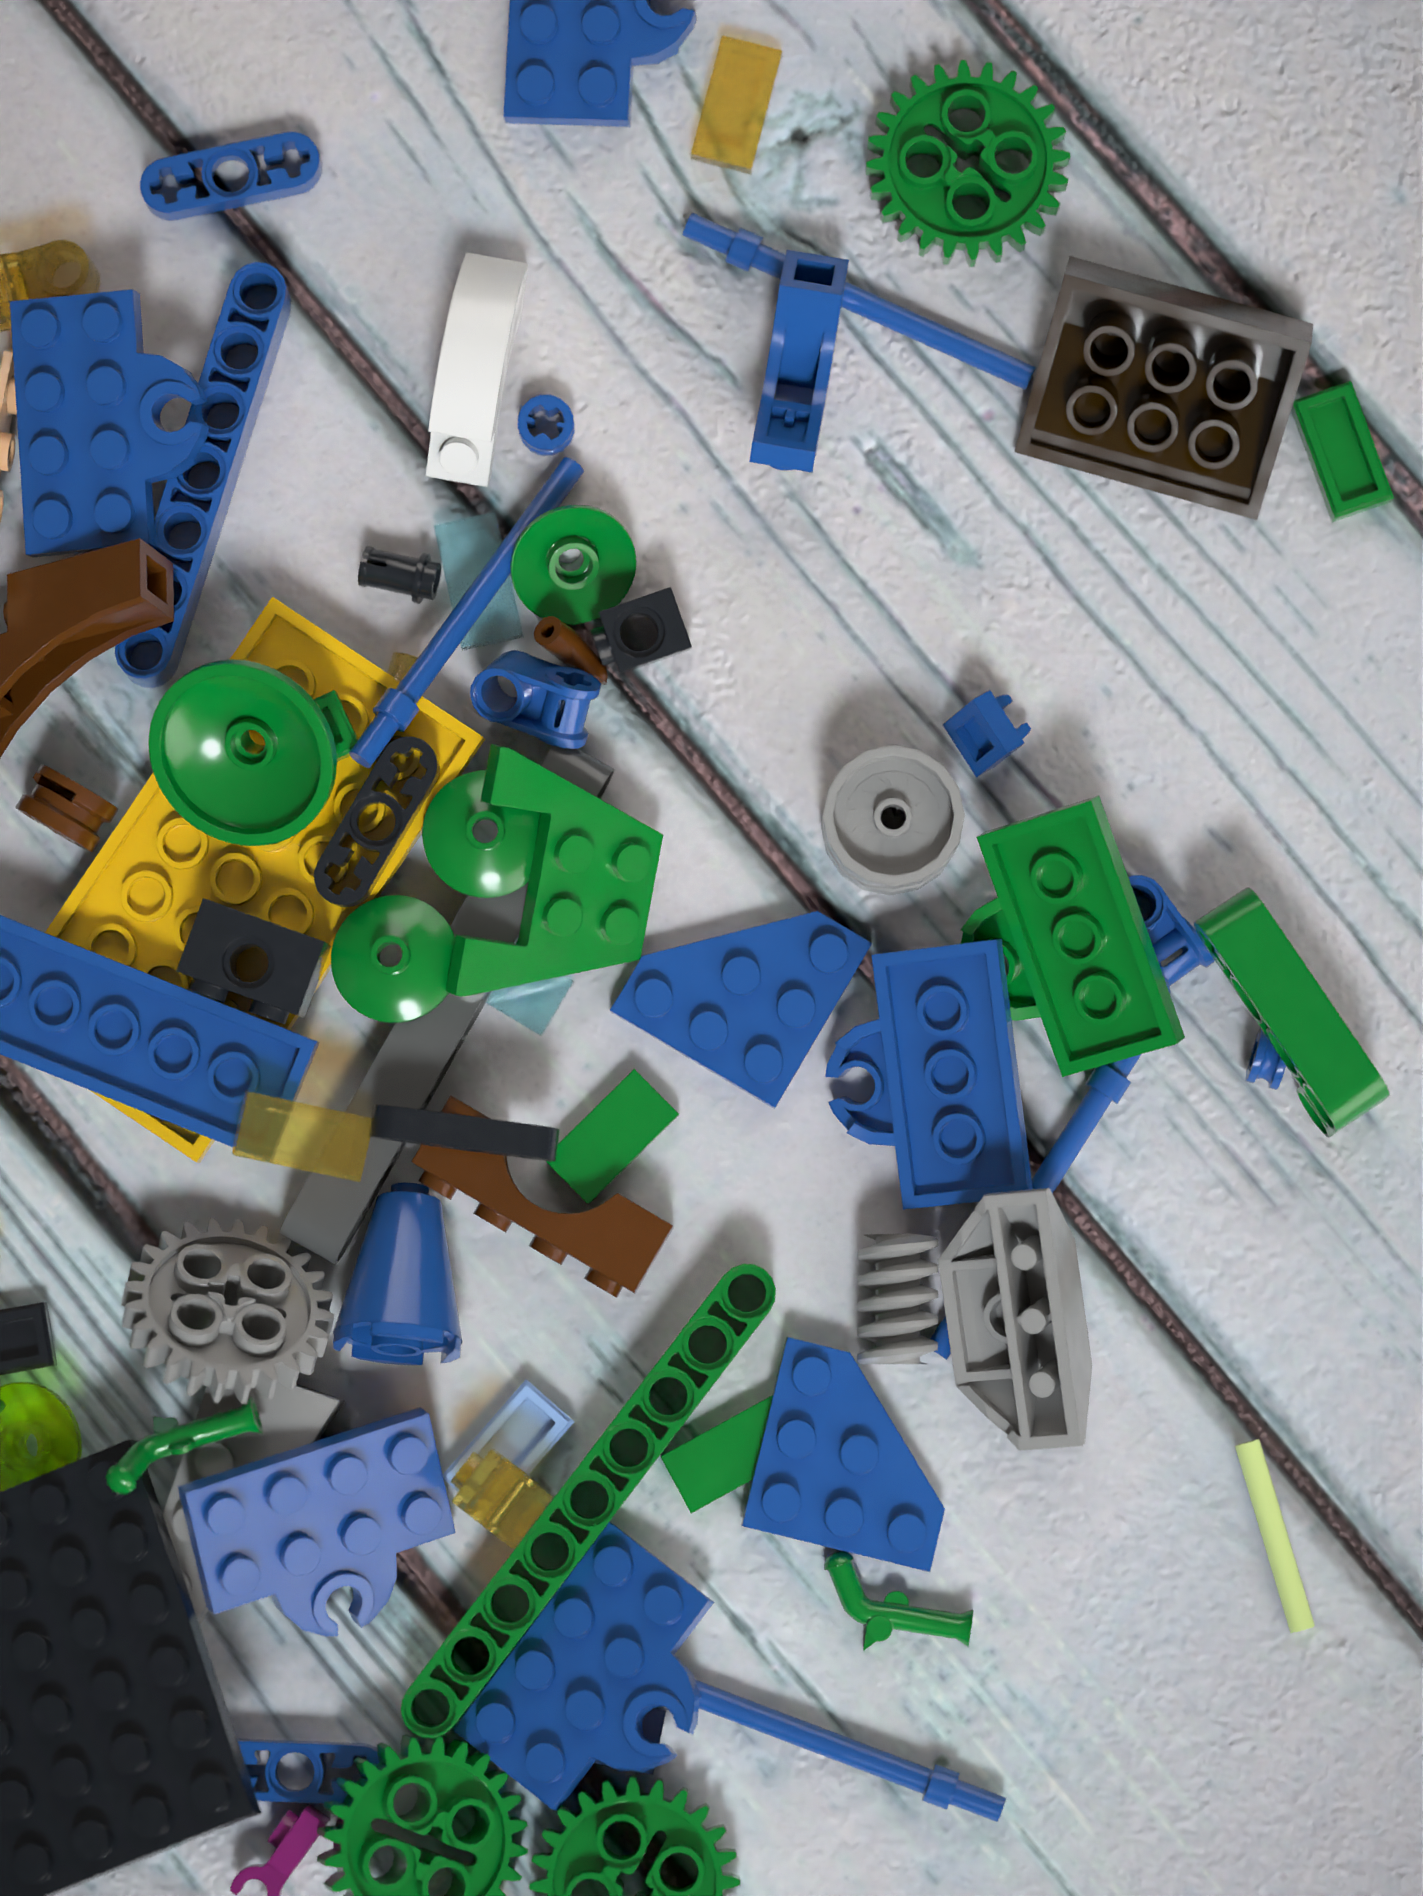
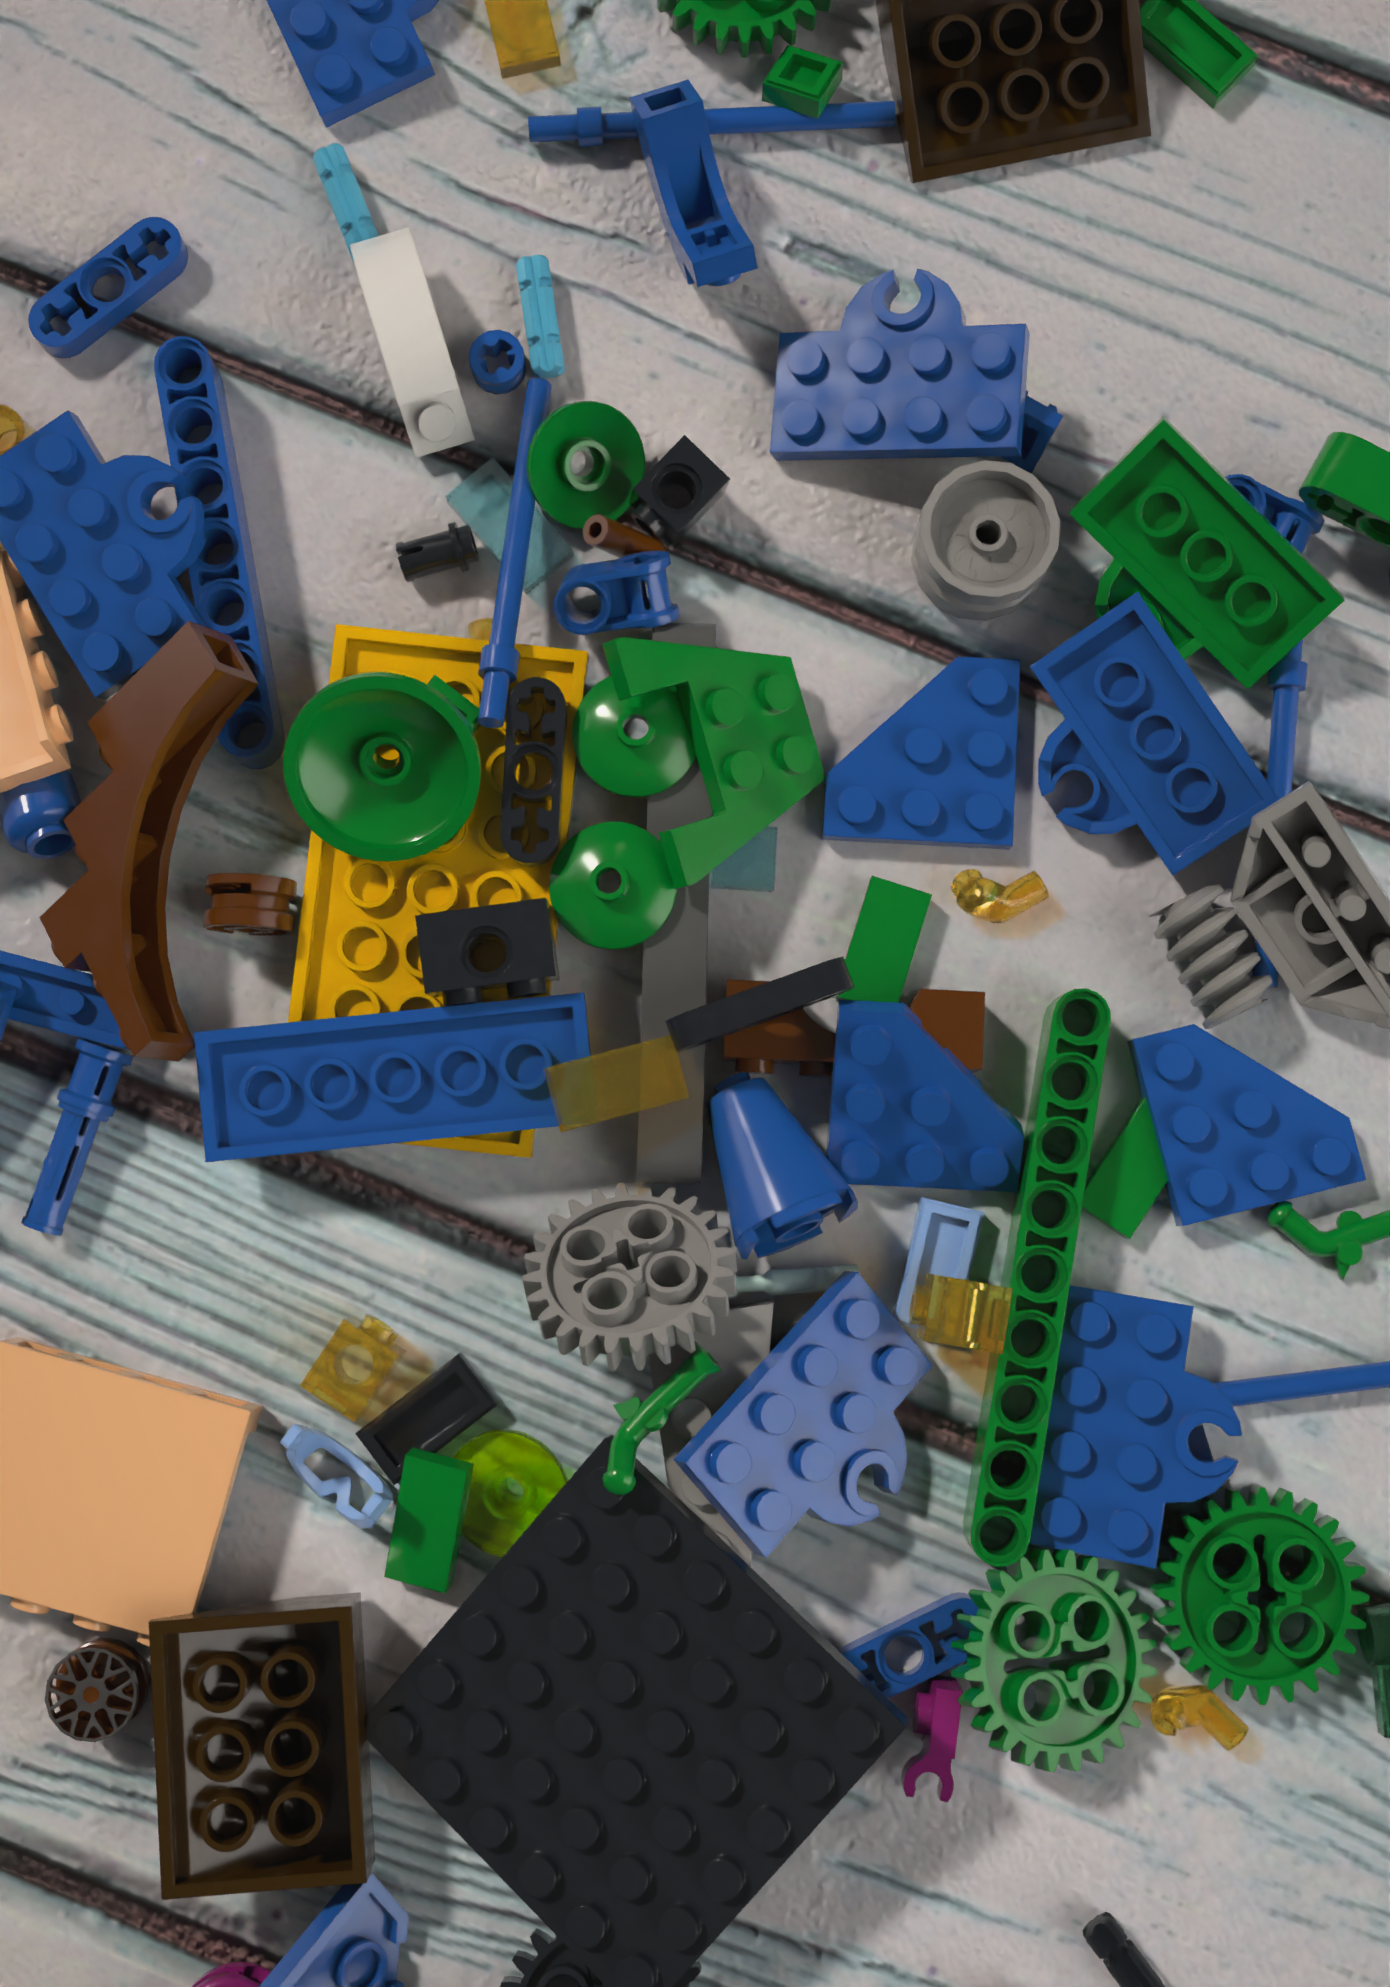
camera: 30 degrees left, 0 degrees up
(369, 1391) = (793, 1280): none -> light aqua piece
(488, 201) = (344, 194): none -> medium azure axle
(554, 1296) = (912, 1109): none -> blue plate
(606, 403) = (540, 316): none -> medium azure axle
(732, 1149) = (993, 900): none -> clear yellow arm
(895, 636) = (901, 382): none -> blue plate
(959, 308) = (802, 81): none -> green tile

